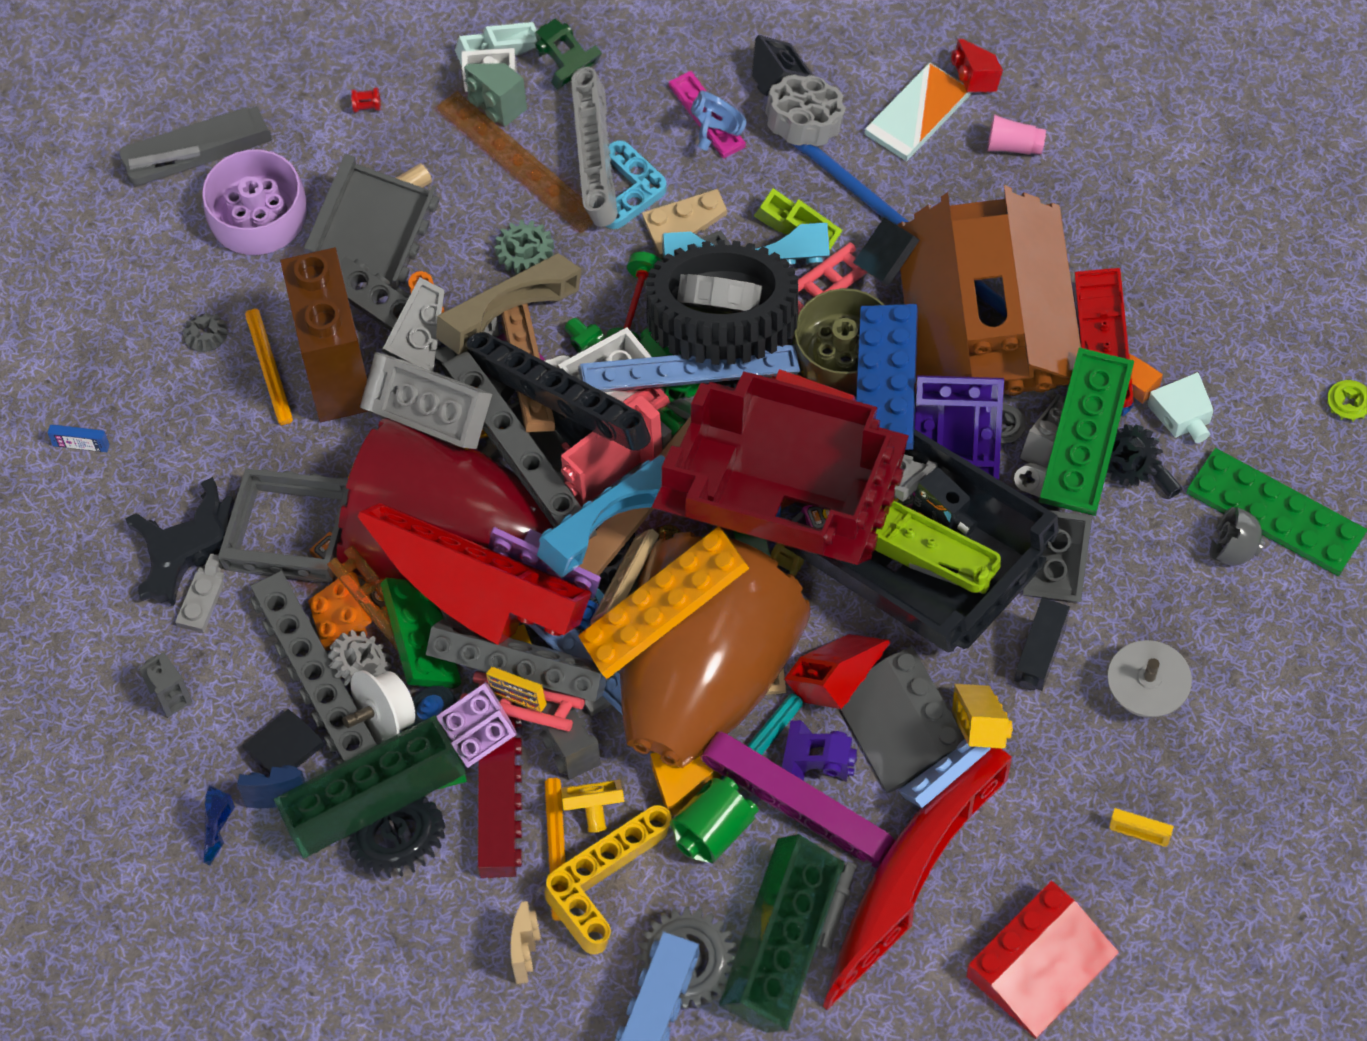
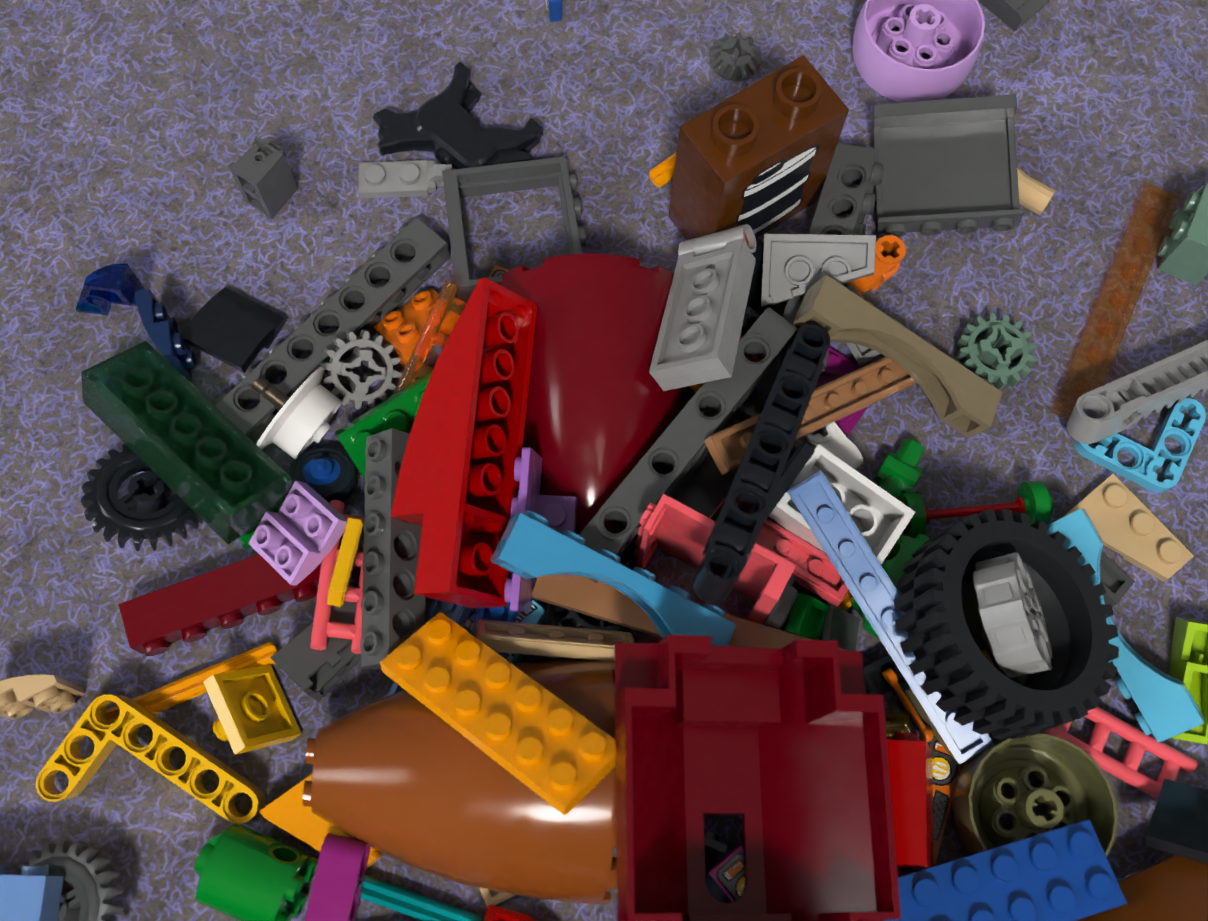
camera: 65 degrees right, 10 degrees up
(374, 103) = (1113, 93): red bush -> none

